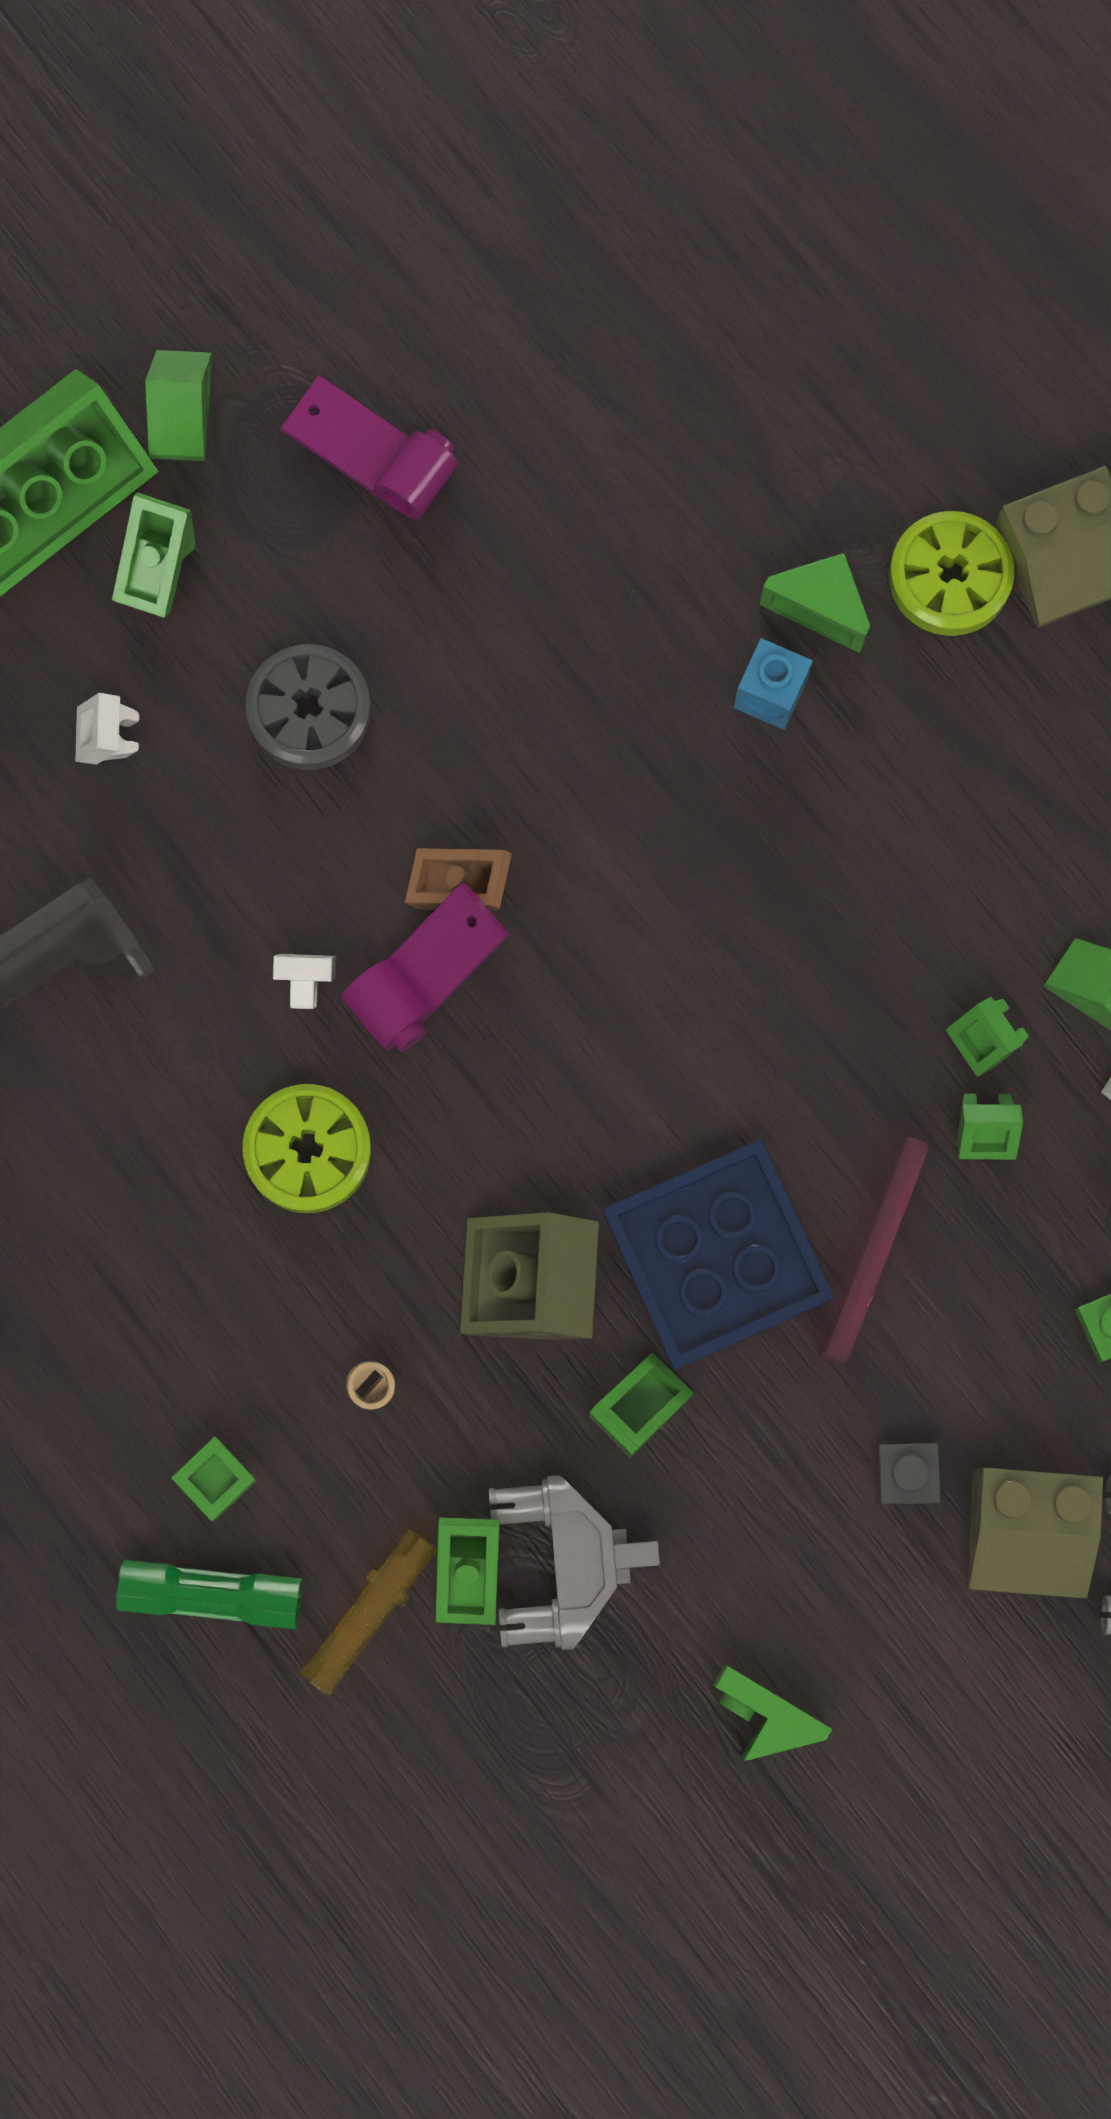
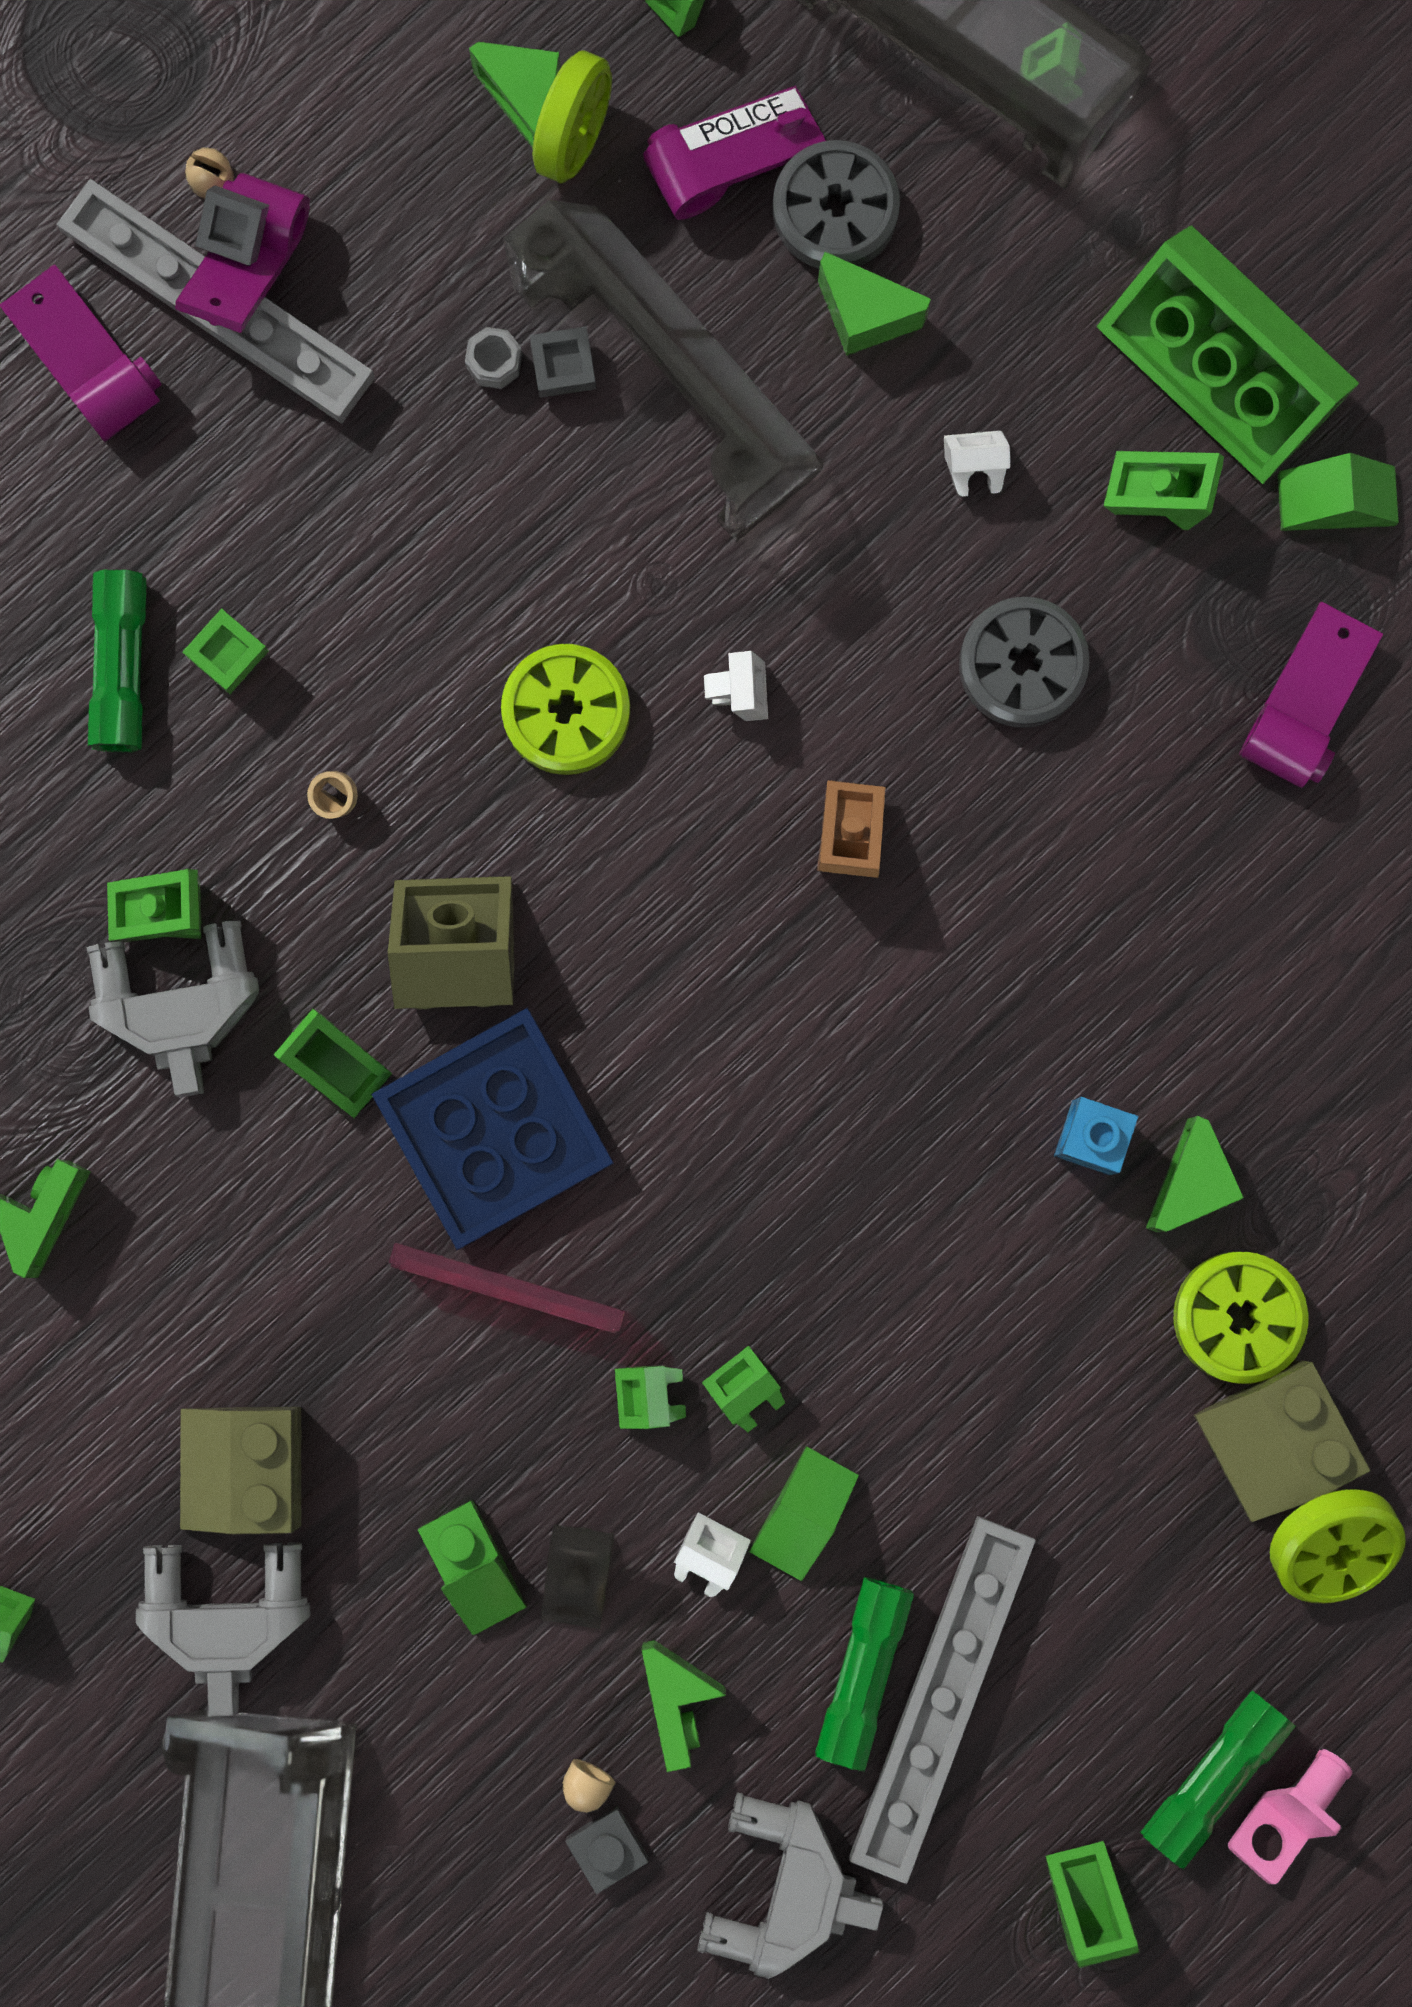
camera: 85 degrees right, 5 degrees up
(369, 1611) = (132, 829): clear yellow pin -> none
(425, 970) = (753, 804): magenta door -> none
(908, 1473) = (290, 1340): dark grey plate -> none

